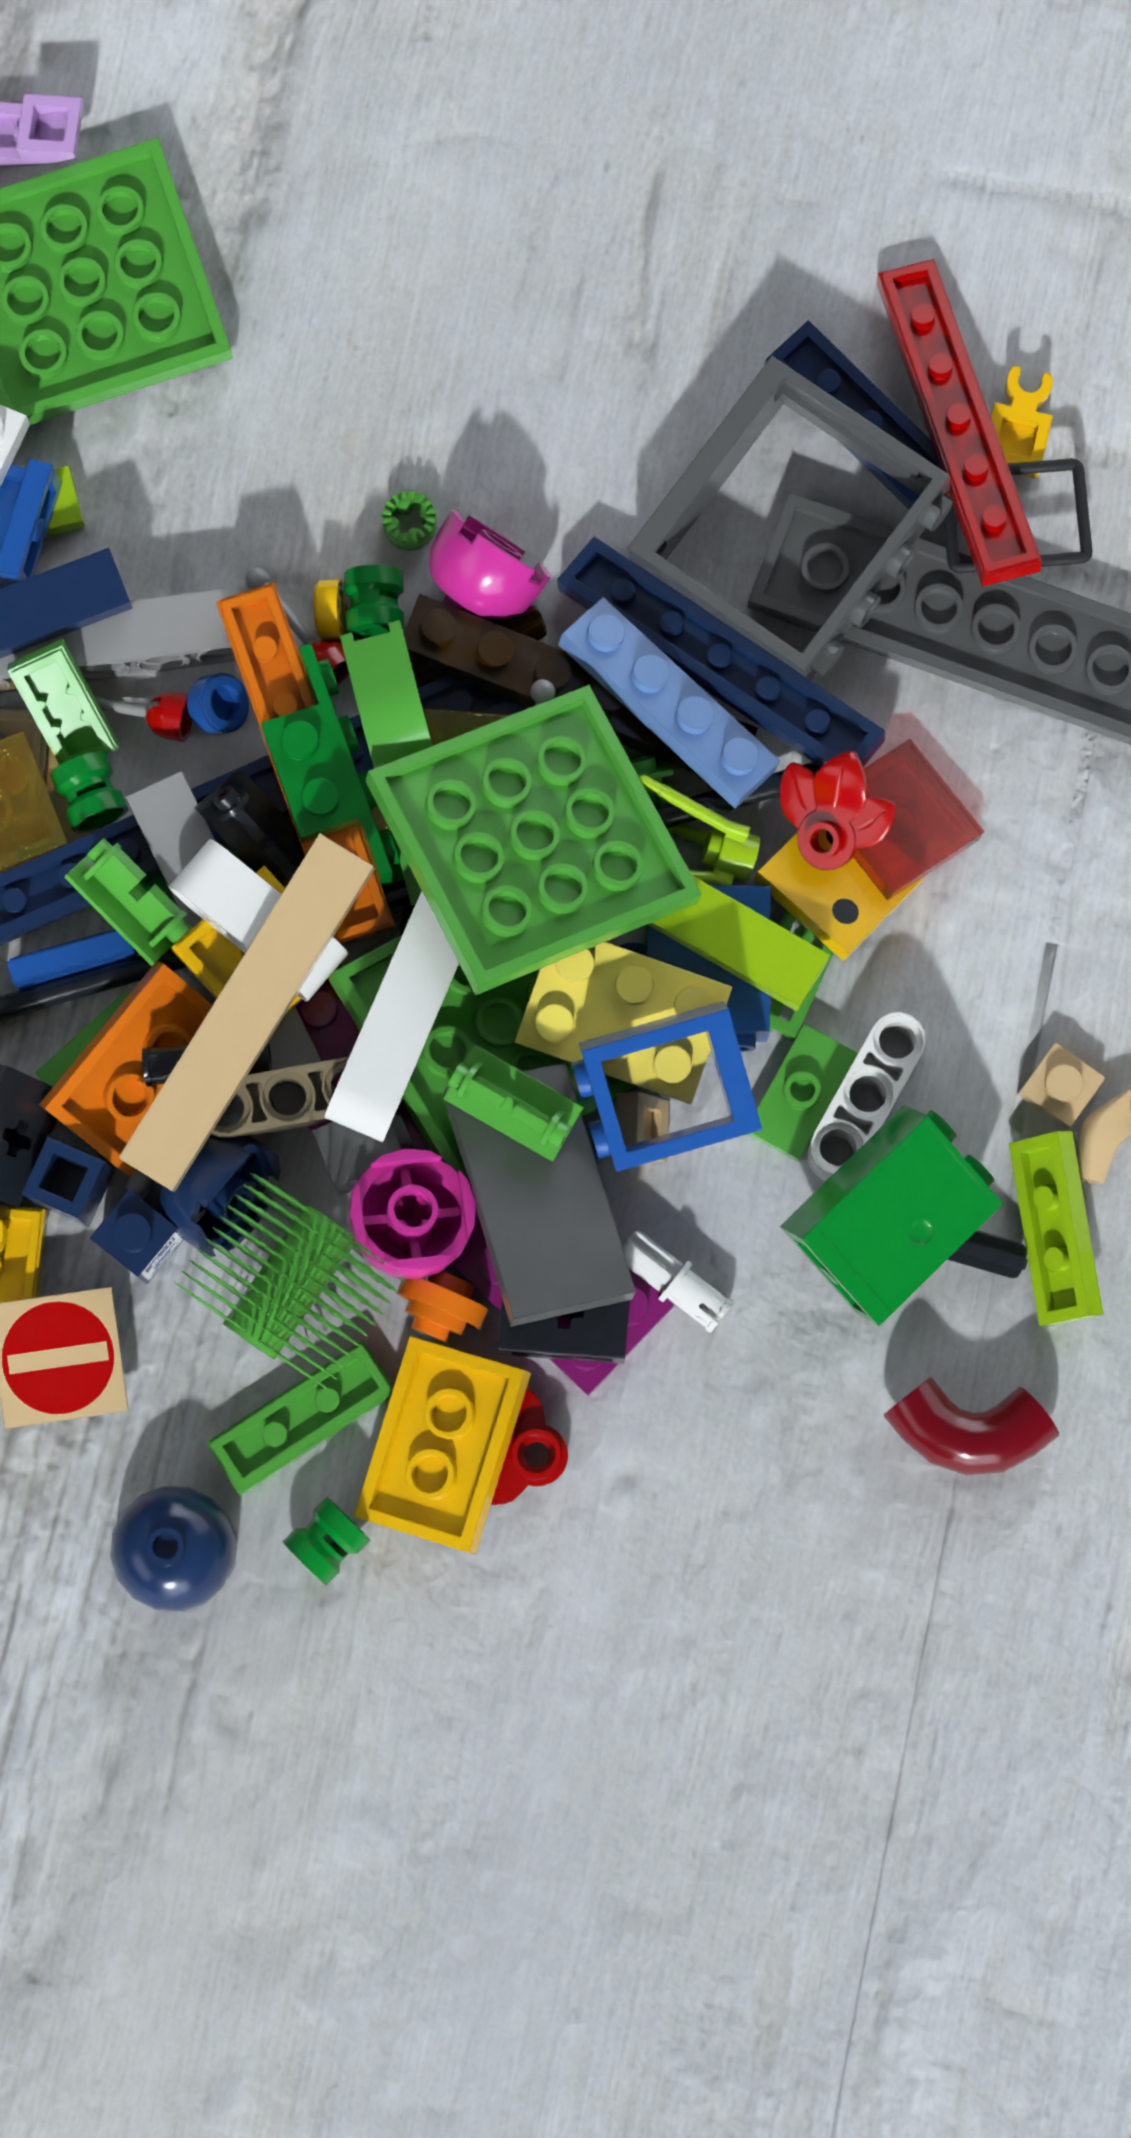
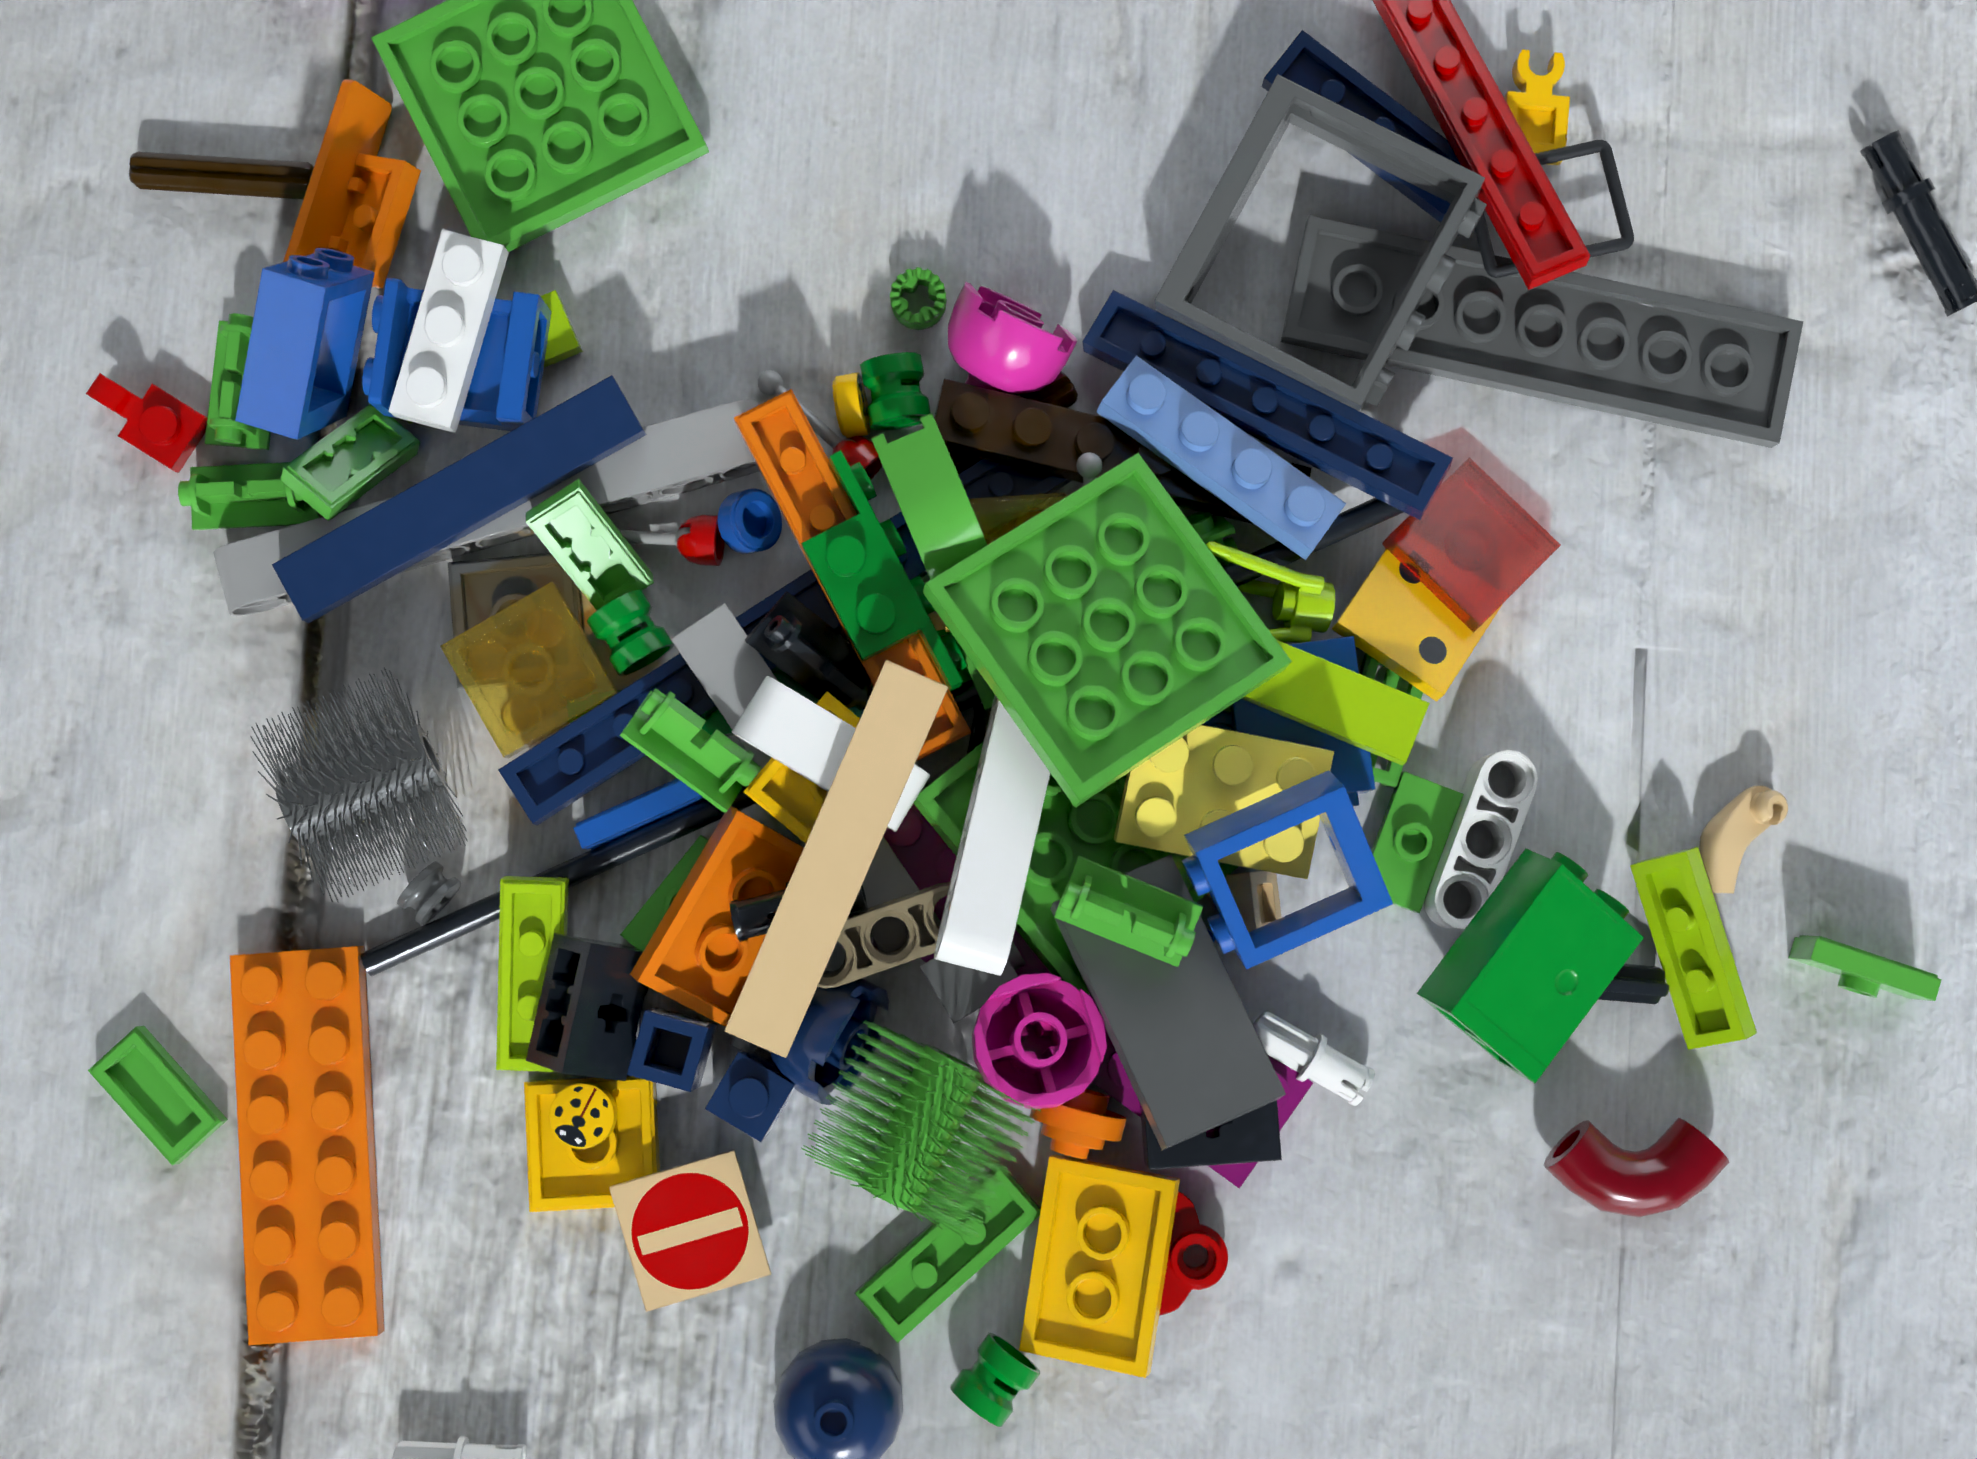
camera: 10 degrees left, 5 degrees up
(835, 802) = (1411, 541): red plate -> none
(1061, 1086) = (1674, 797): tan plate -> none

